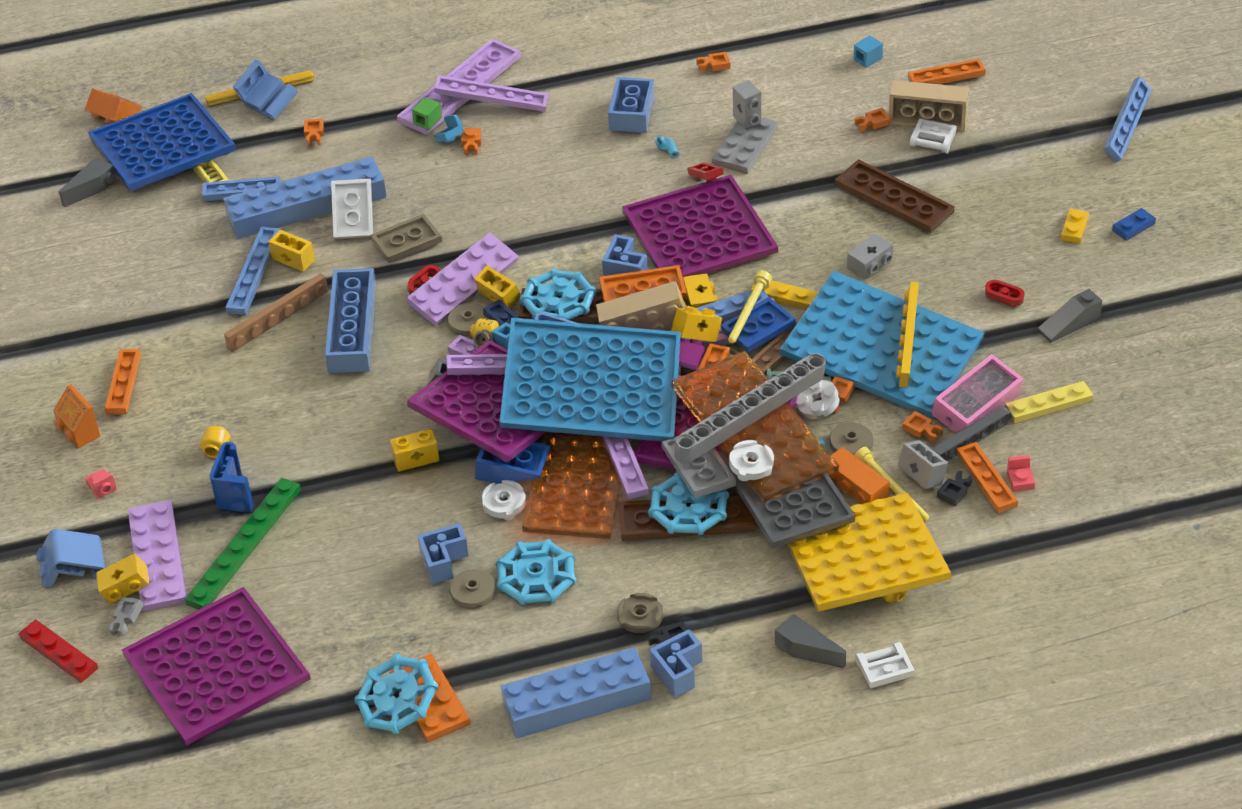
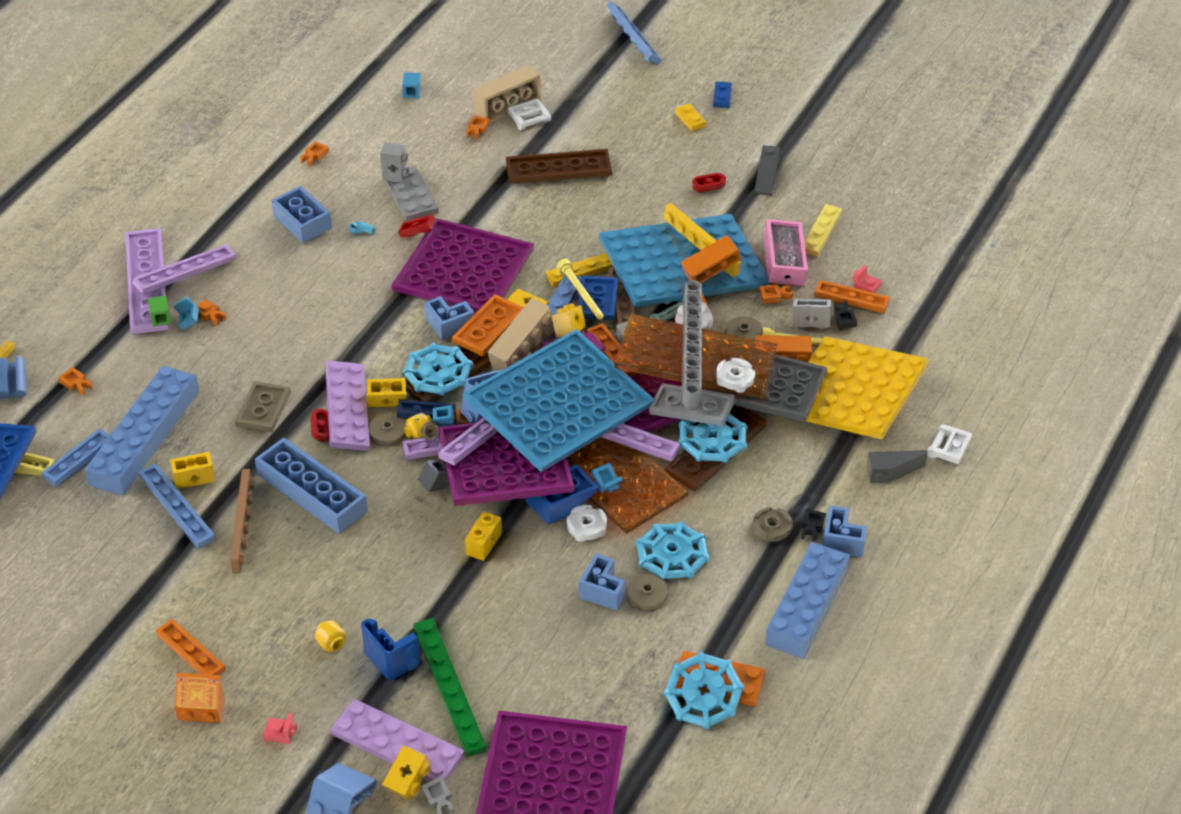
camera: 50 degrees left, 0 degrees up
(352, 208) = (199, 411): white plate -> none
(555, 473) = (606, 478): none -> dark azure bracket
(870, 256) = (599, 212): light grey brick -> none
(879, 354) = (711, 260): none -> orange brick
(949, 73) = (482, 70): orange plate -> none
(974, 432) = (810, 281): dark grey beam -> none

